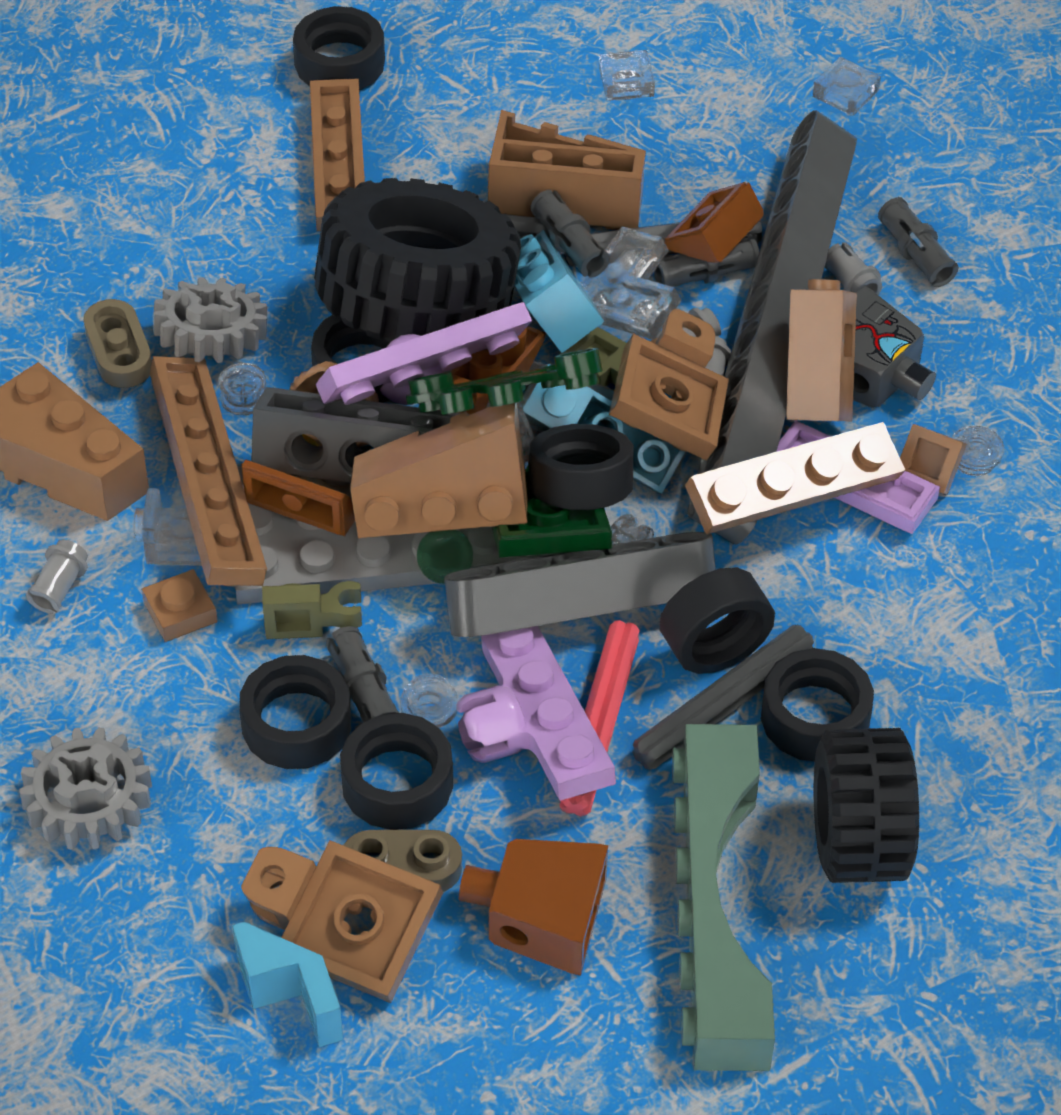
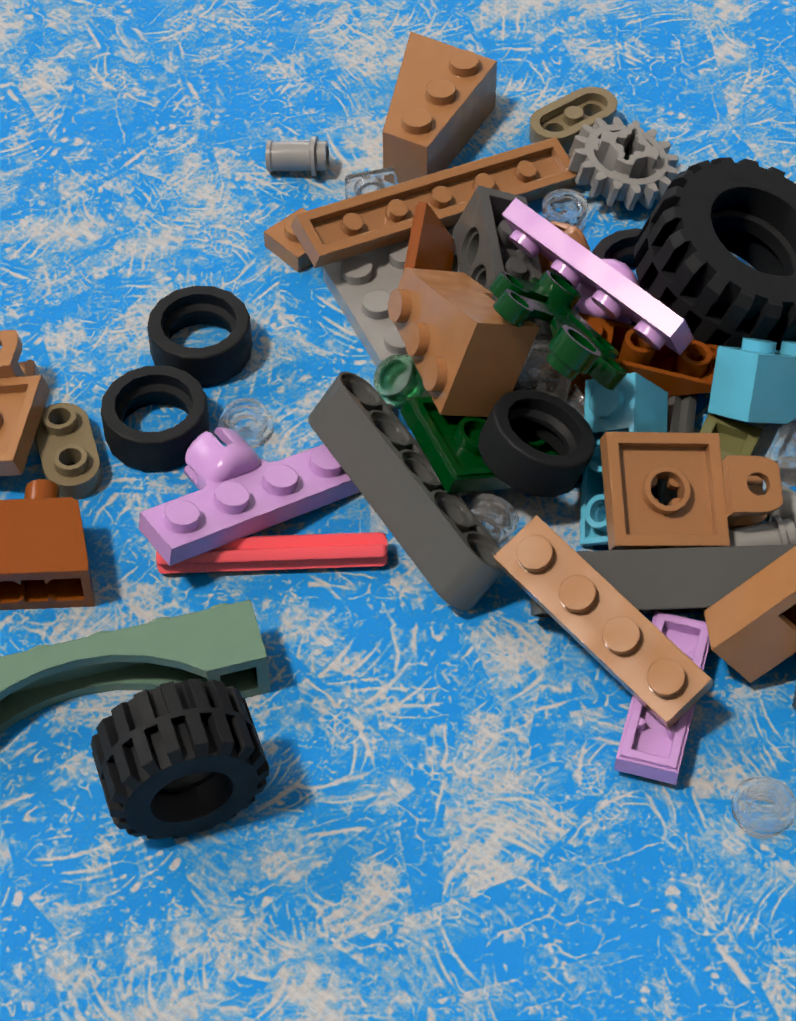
camera: 75 degrees right, 0 degrees up
(85, 788) = (78, 229): light grey gear -> none
(303, 611) = (312, 309): olive plate -> none
(361, 674) = (282, 359): dark grey pin -> none
(703, 602) = (393, 600): black tyre -> none
(719, 698) = (337, 648): dark grey axle -> none
(816, 669) = (331, 682): black tyre -> none
(932, 456) = (717, 758): medium nougat plate -> none

